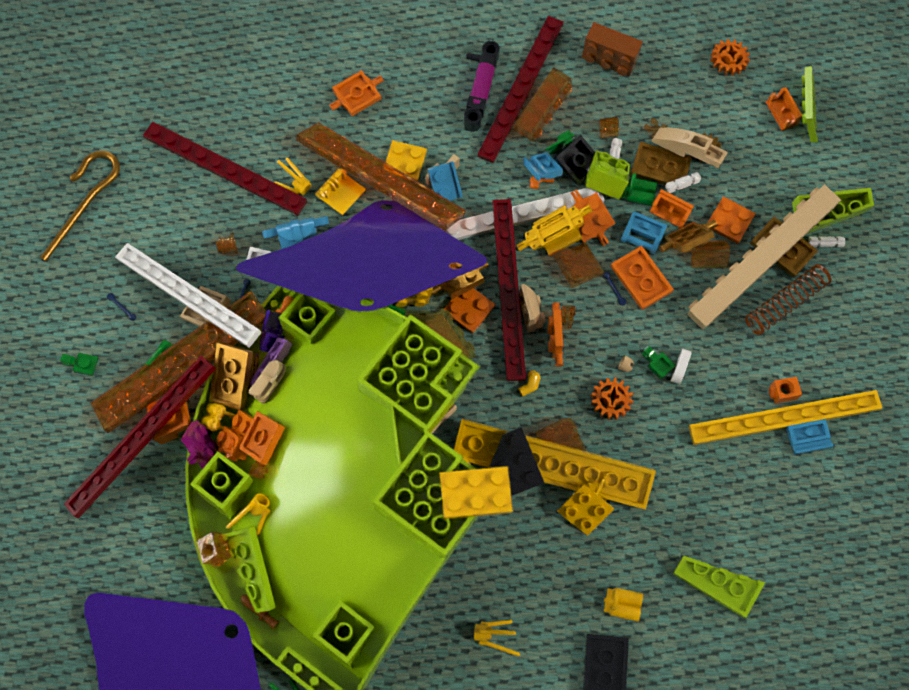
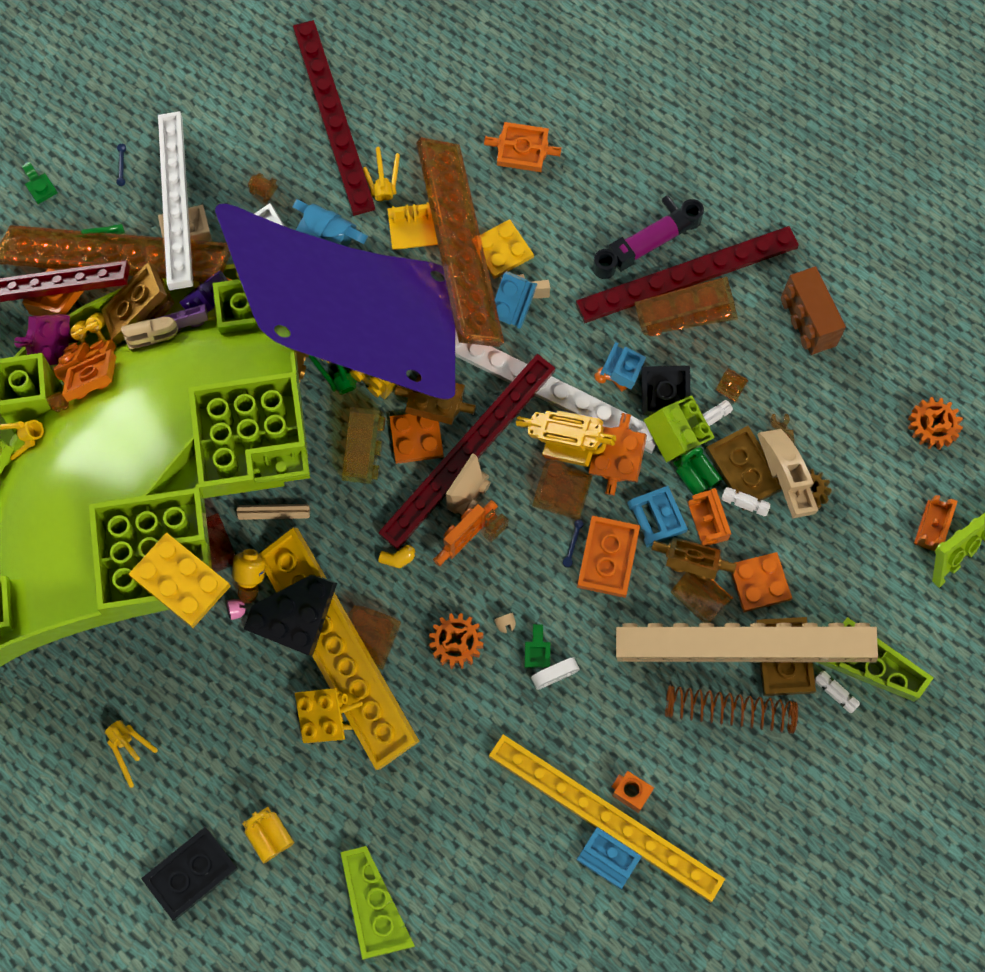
camera: 45 degrees right, 0 degrees up
(87, 200) = (191, 44): pearl gold piece -> none
(563, 140) = (666, 357): green plate -> none

